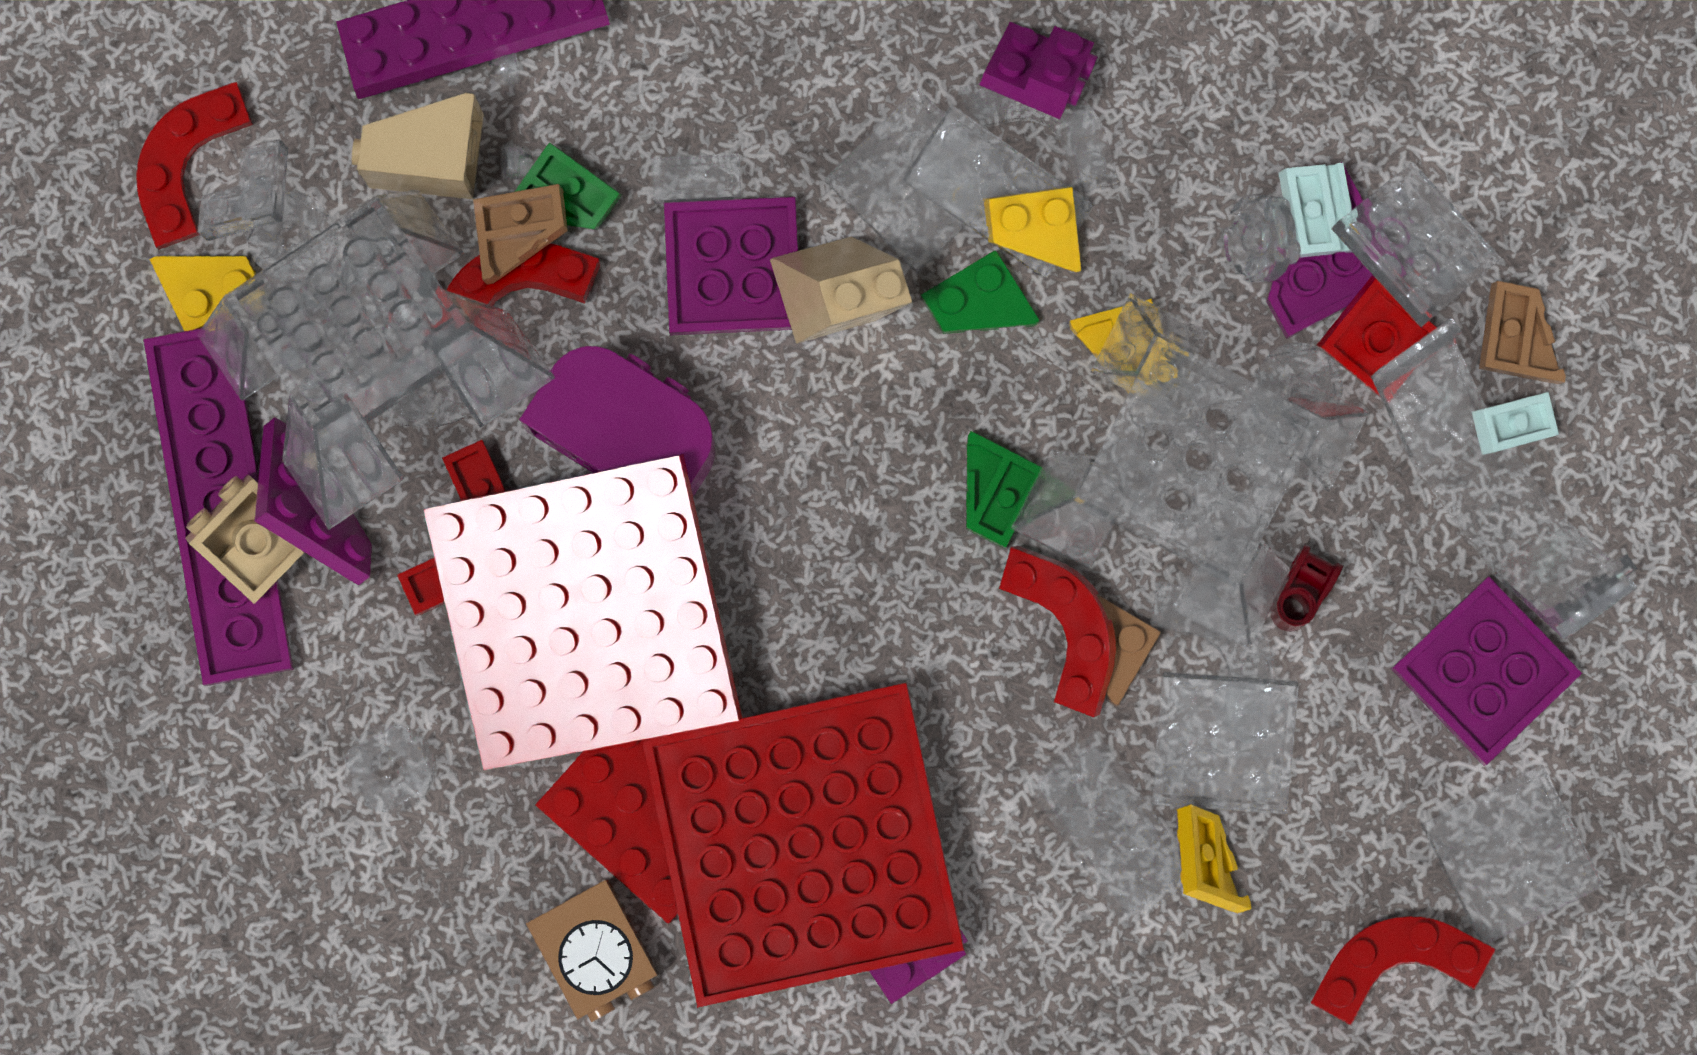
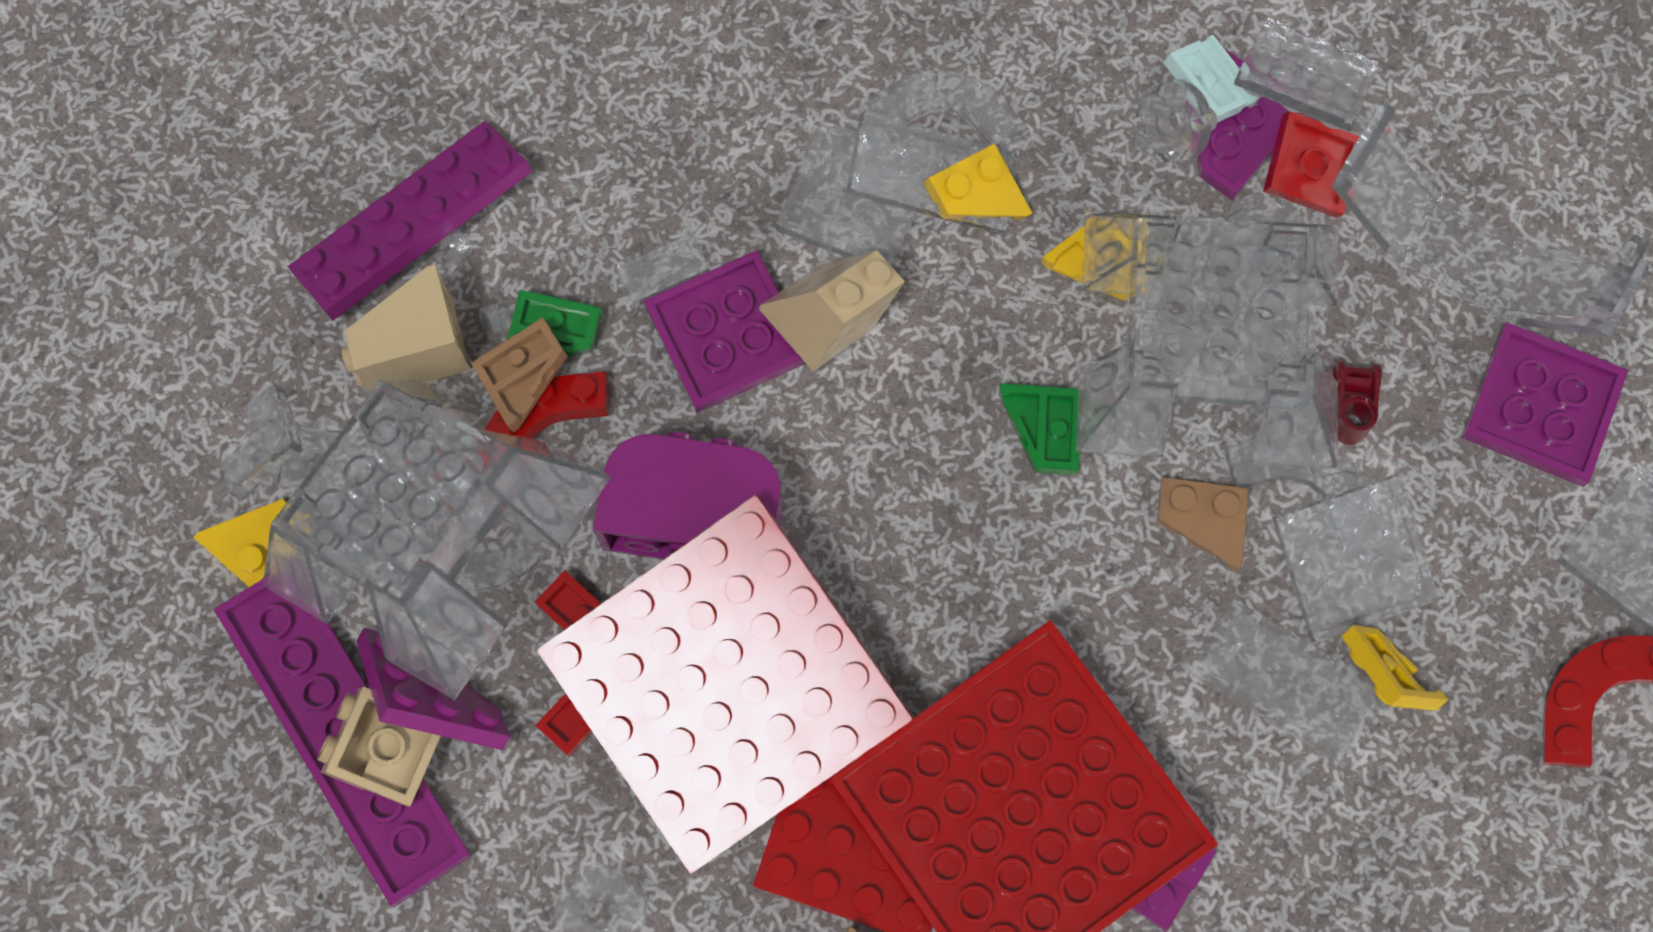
camera: 20 degrees left, 10 degrees down
(170, 148) = (177, 434): red plate -> none
(979, 299) = (955, 272): green wing -> none
(1040, 68) = (922, 64): magenta plate -> none
(1083, 618) = (1178, 502): red plate -> none
(1515, 423) = (1462, 186): light aqua plate -> none
(1518, 336) = (1426, 118): medium nougat wing -> none

